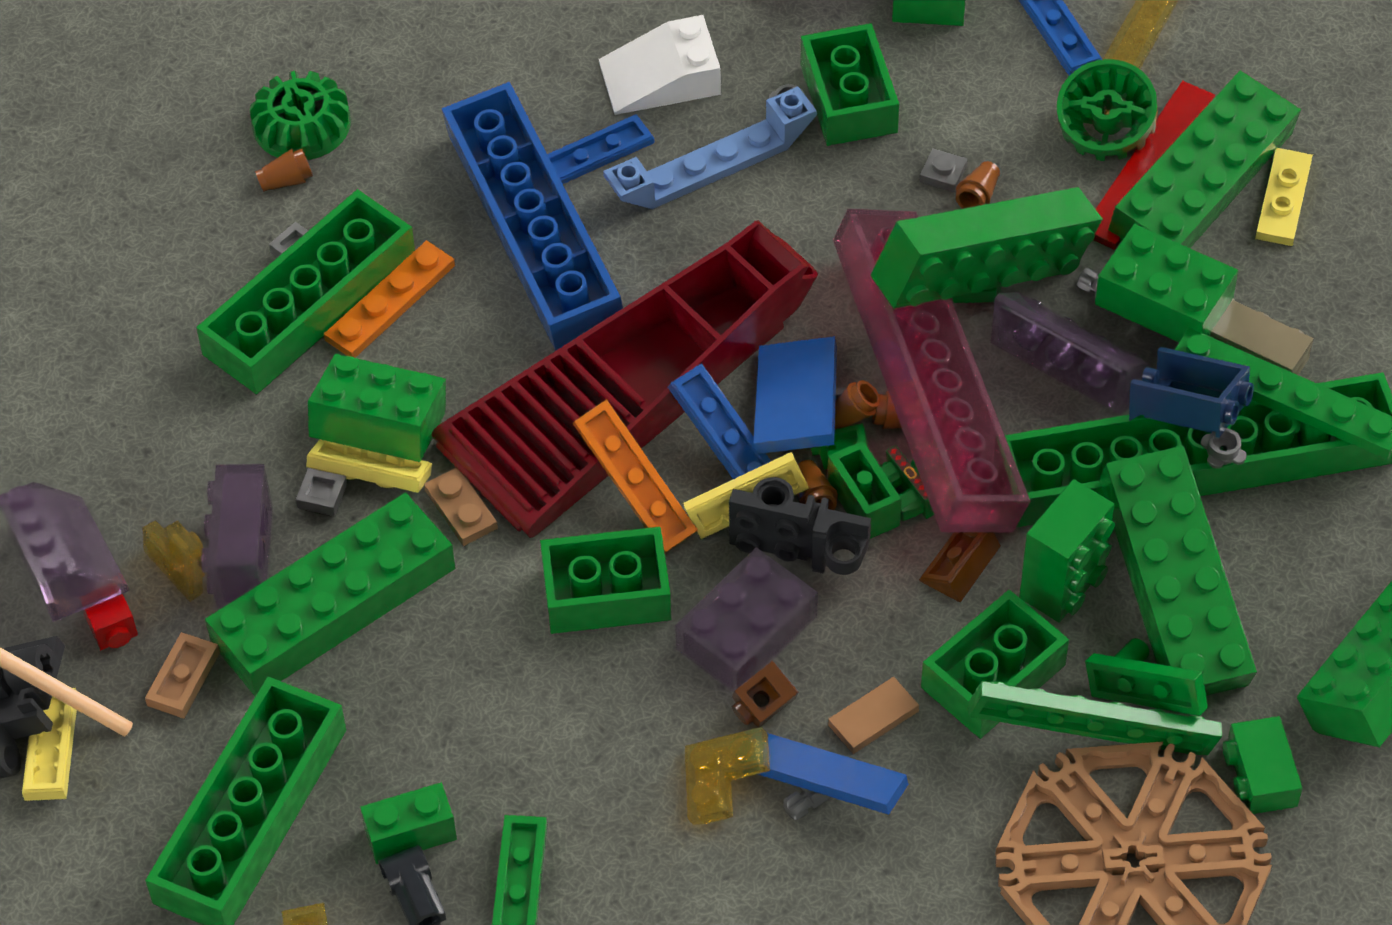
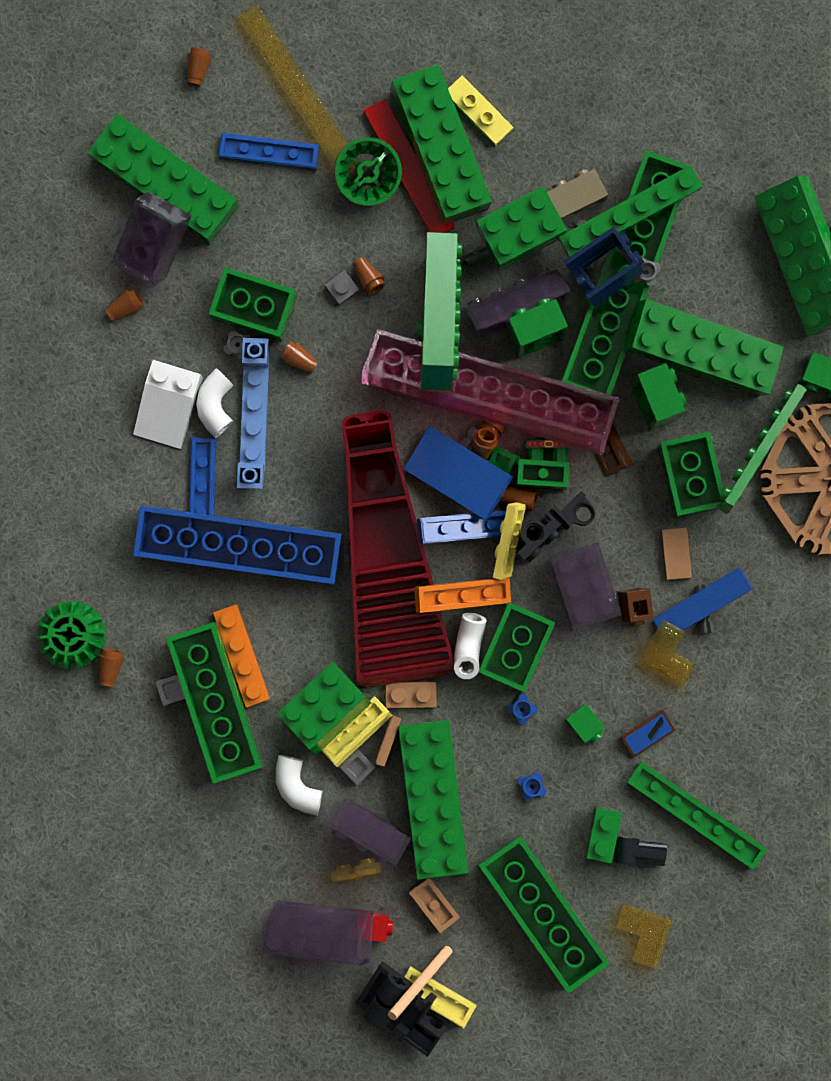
camera: 55 degrees left, 30 degrees up
(251, 427) = (292, 788): none -> white cylinder
(360, 505) = (388, 740): none -> medium nougat tile
(424, 699) = (535, 779): none -> blue plate
(526, 632) = (522, 702): none -> blue plate
(543, 522) = (469, 645): none -> white cylinder
(554, 721) = (585, 724): none -> green brick
(593, 809) = (647, 733): none -> slope
(694, 106) = (209, 403): none -> white cylinder
(819, 165) = (298, 357): none -> dark orange cone
(1049, 367) = (536, 327): none -> green brick
(1143, 683) = (735, 418): green piece -> none

